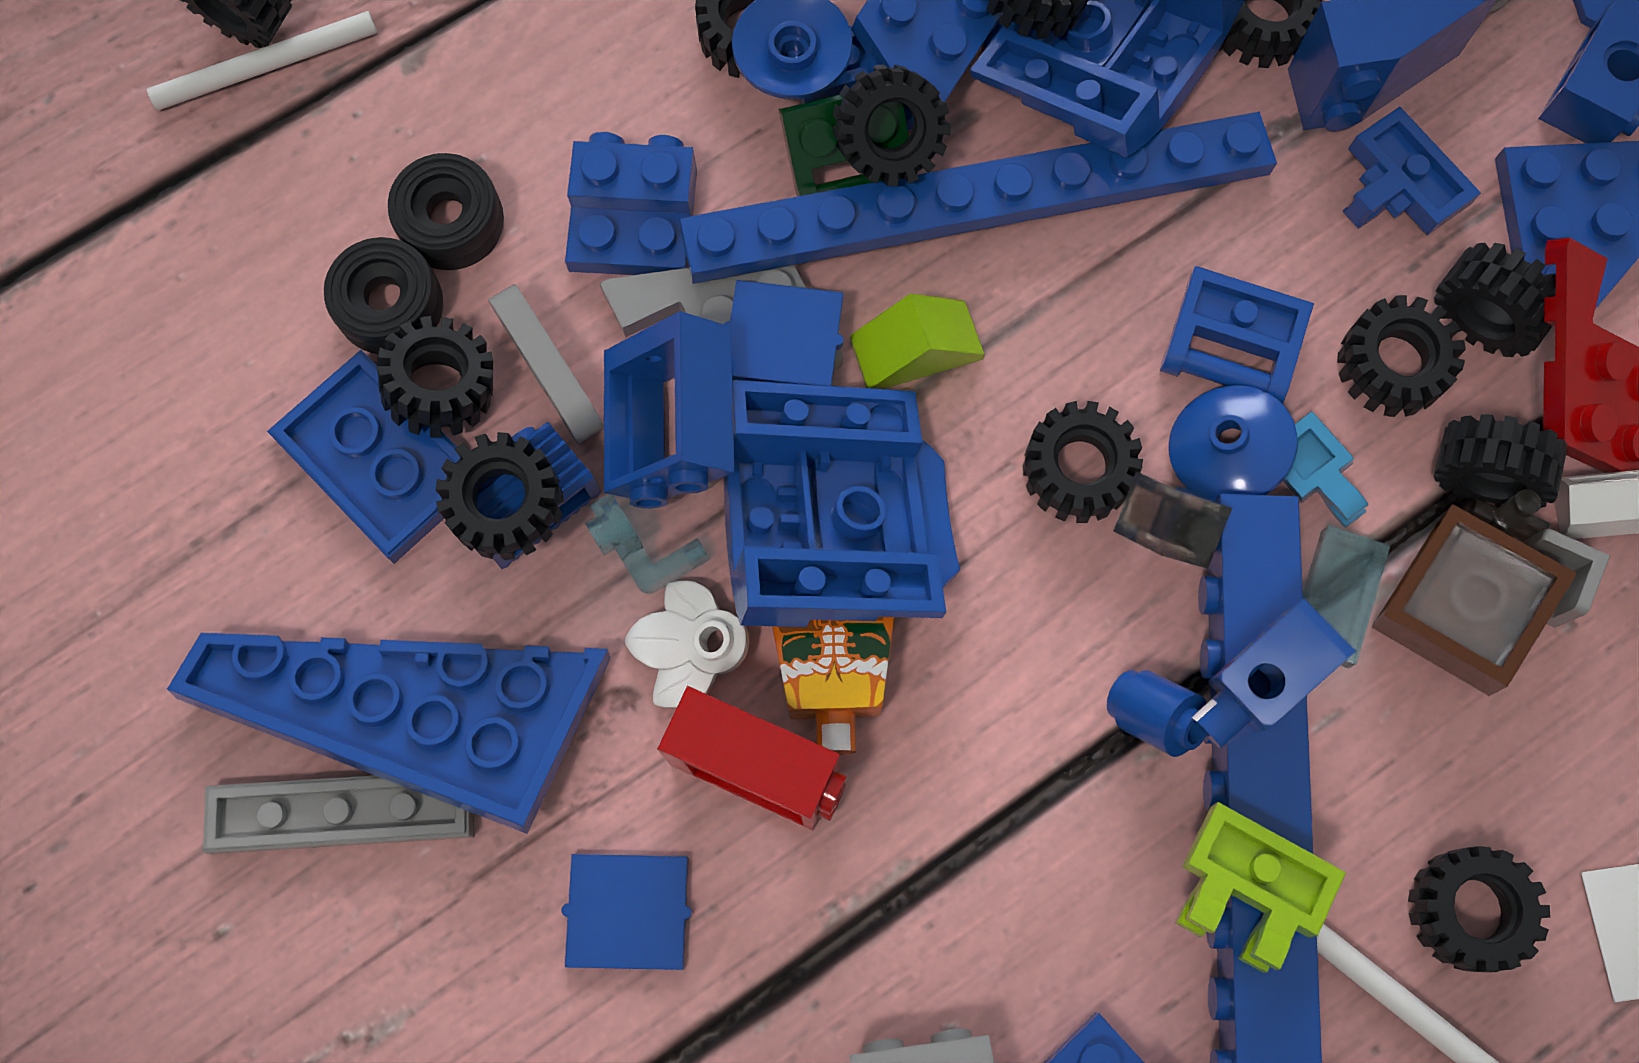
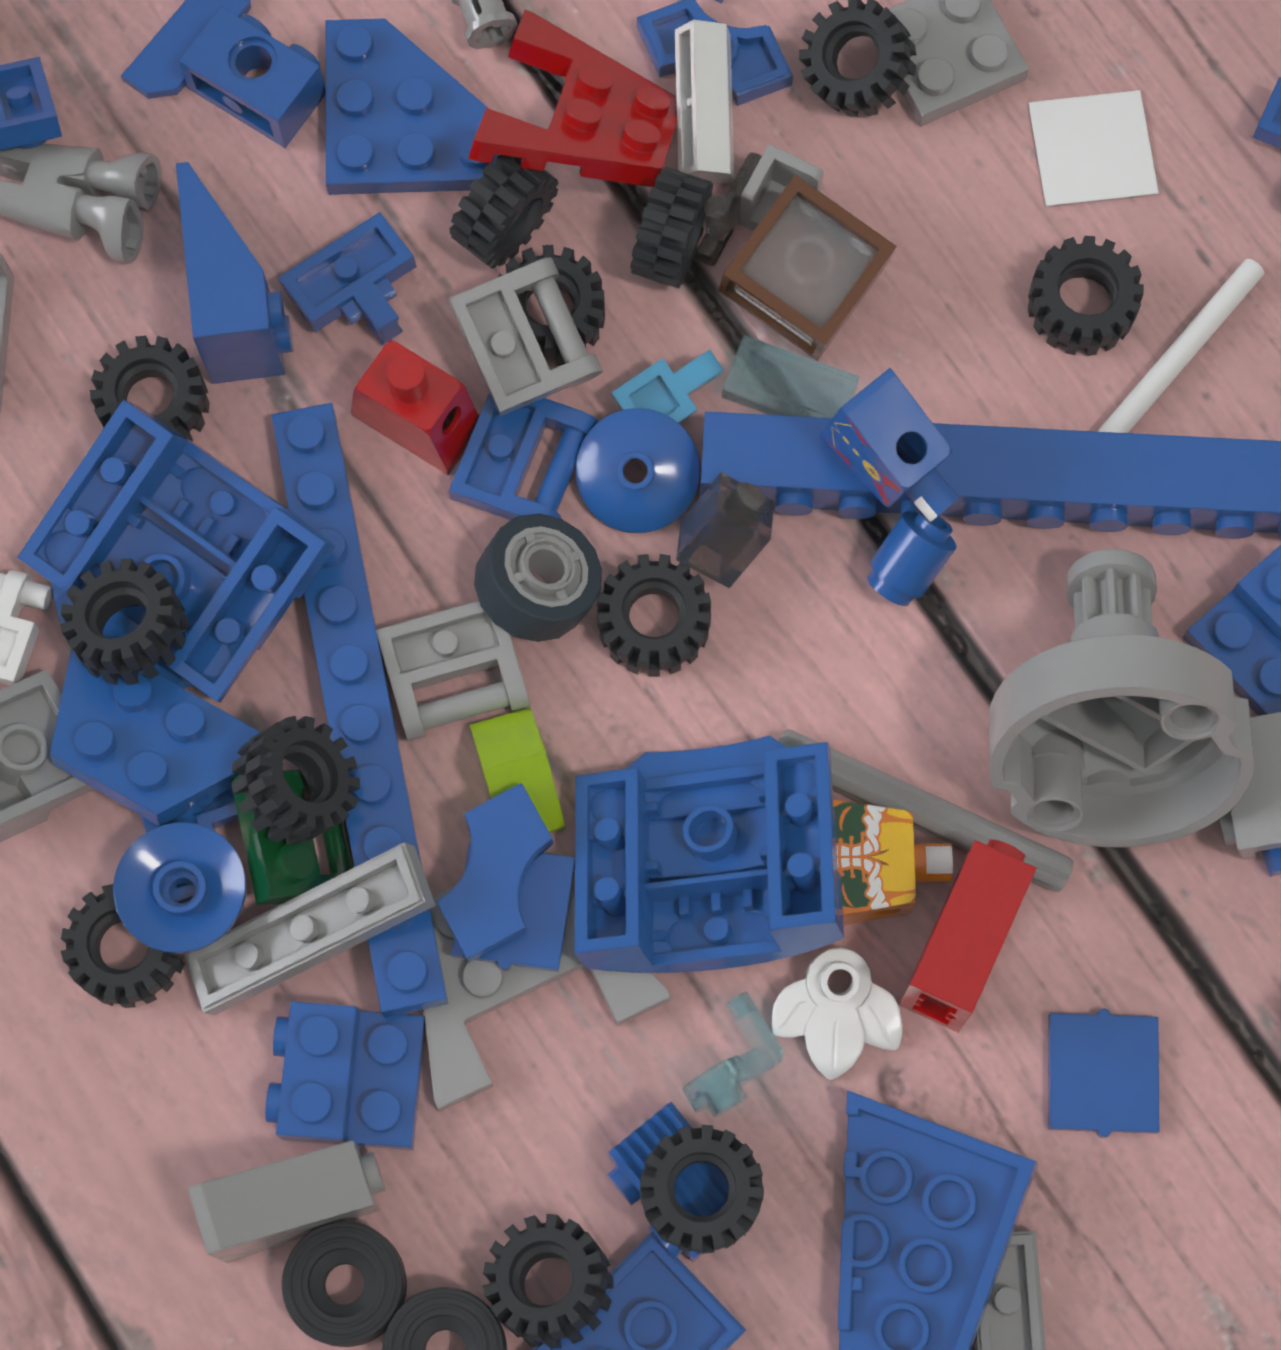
camera: 90 degrees left, 0 degrees up
(511, 145) = (285, 1200): none -> light grey slope
(546, 364) = (531, 1164): light grey beam -> none
(634, 374) = (605, 1065): blue window -> none
(759, 160) = (310, 929): none -> light grey tile
(838, 318) = (504, 843): none -> blue tile
(889, 737) = (936, 814): none -> light grey axle
(972, 918) = (1119, 727): none -> light grey piece
(1037, 274) = (446, 648): none -> light grey plate
(1144, 342) = (521, 601): none -> wheel
(1263, 871) = (1067, 472): lime plate -> none
(1283, 219) = (409, 403): none -> red torso
(1352, 300) = (506, 344): none -> light grey plate

